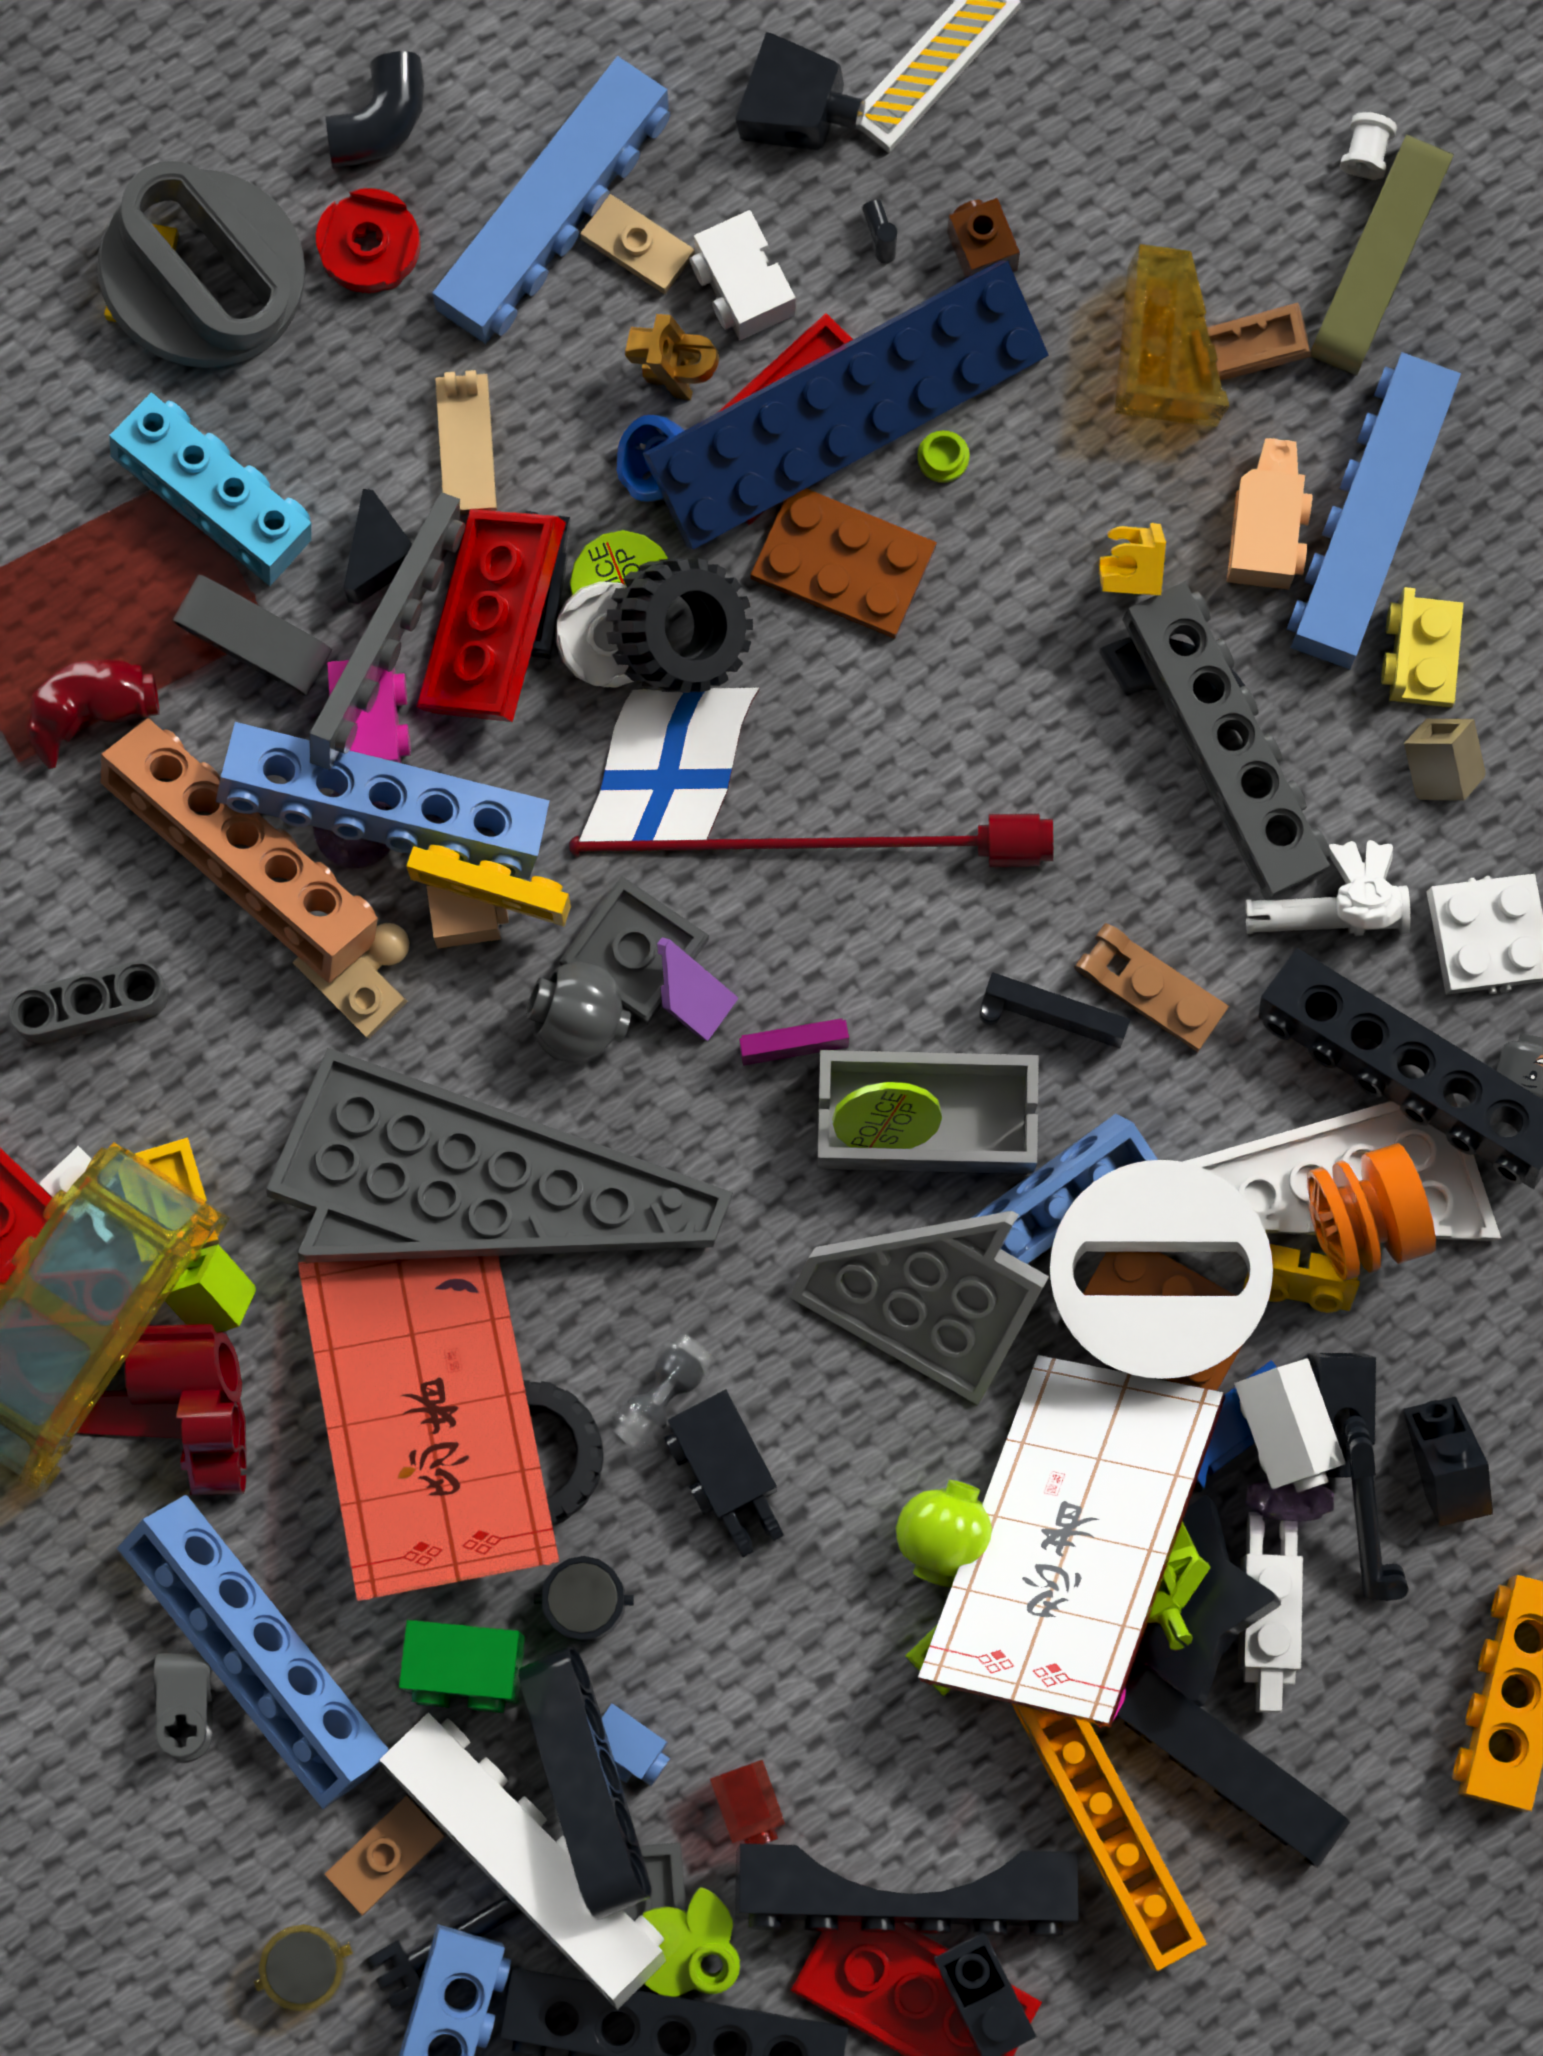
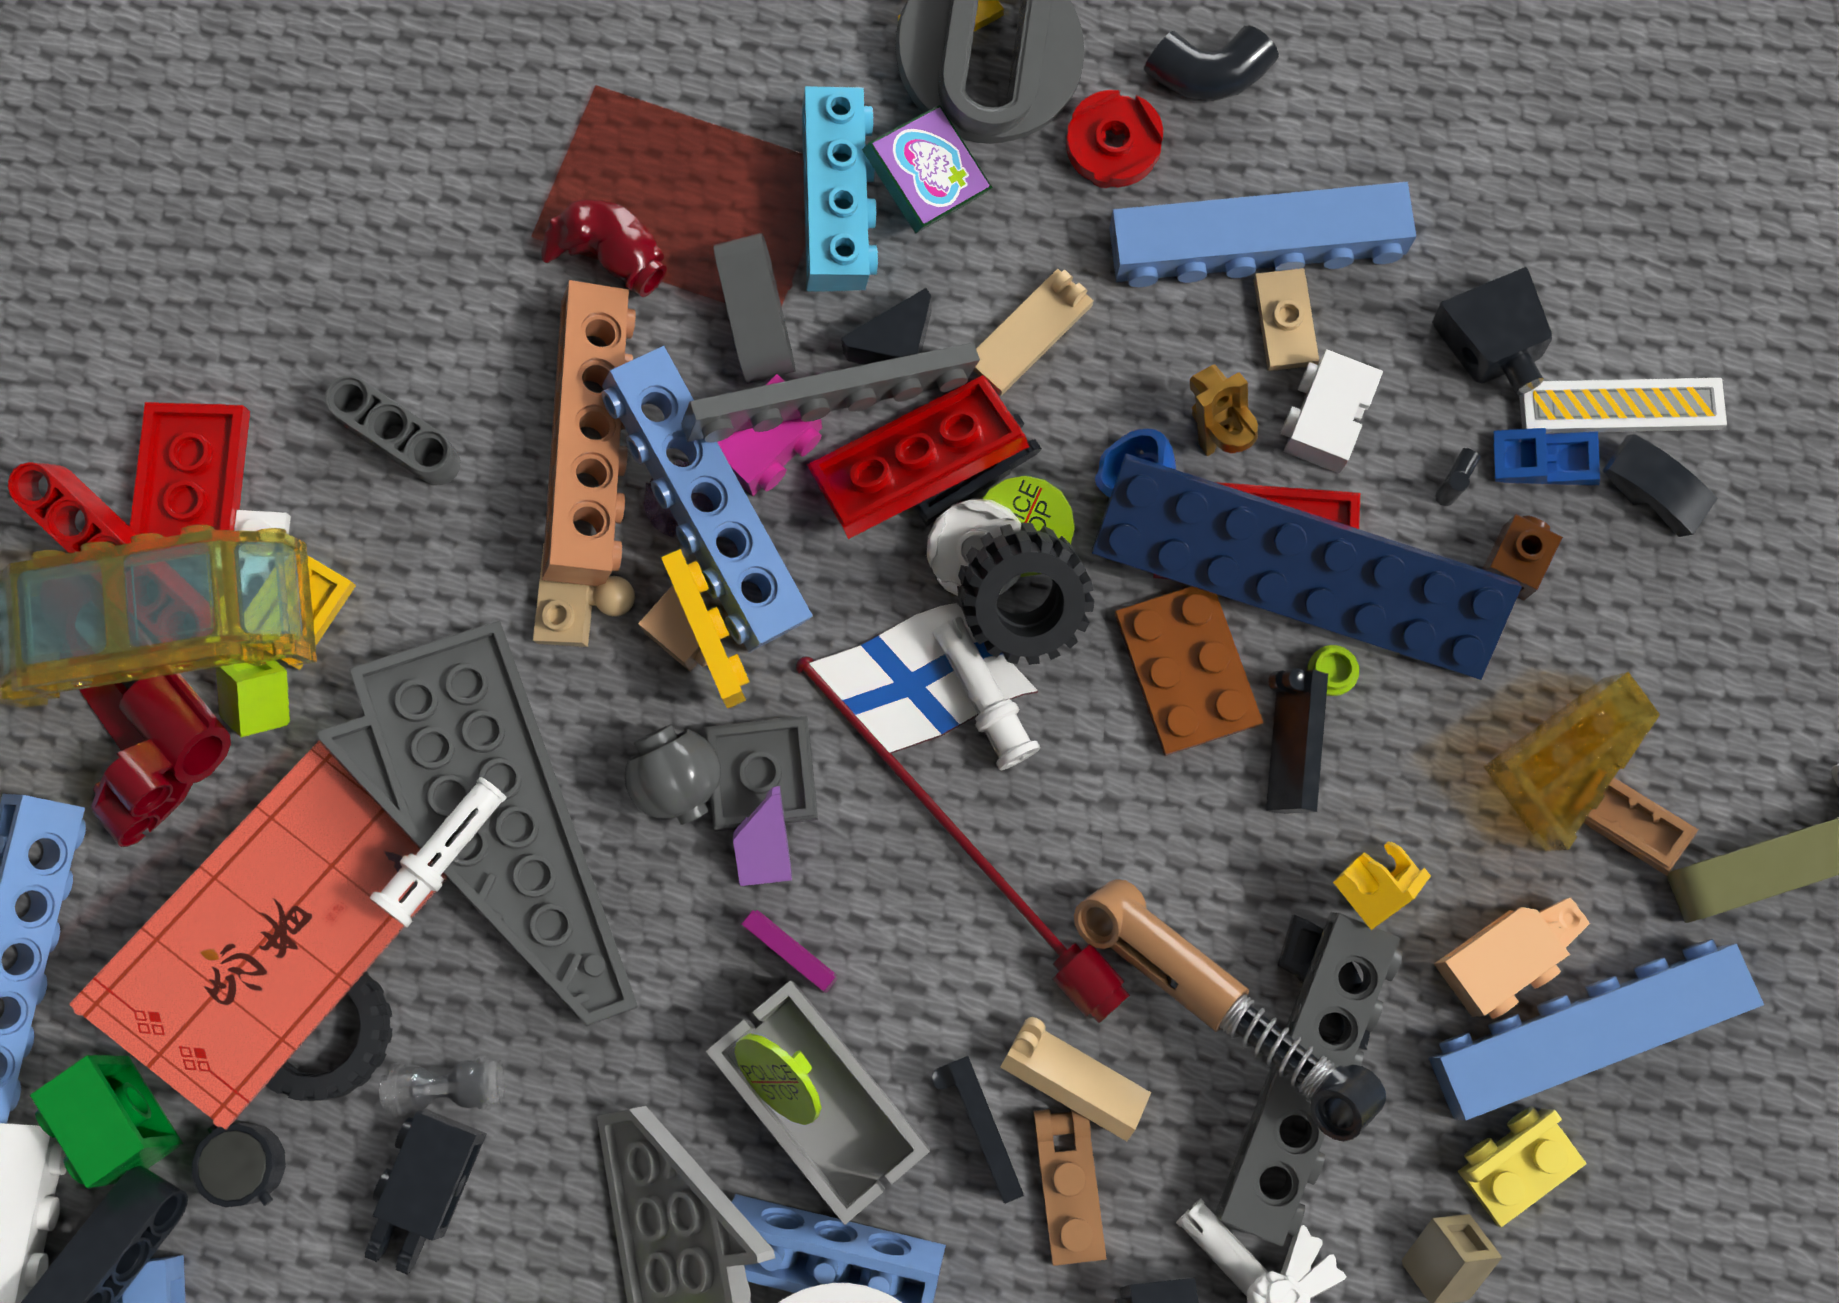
camera: 50 degrees right, 0 degrees up
(262, 403) = (927, 168): none -> tile
(485, 1257) = (483, 800): none -> white pin
(749, 732) = (995, 714): none -> white pin
(924, 153) = (1546, 458): none -> blue slope
(972, 529) = (1296, 740): none -> black hinge
(1013, 89) = (1656, 478): none -> black slope
(1078, 913) = (1076, 1079): none -> tan hinge
(1117, 750) = (1117, 918): none -> piece

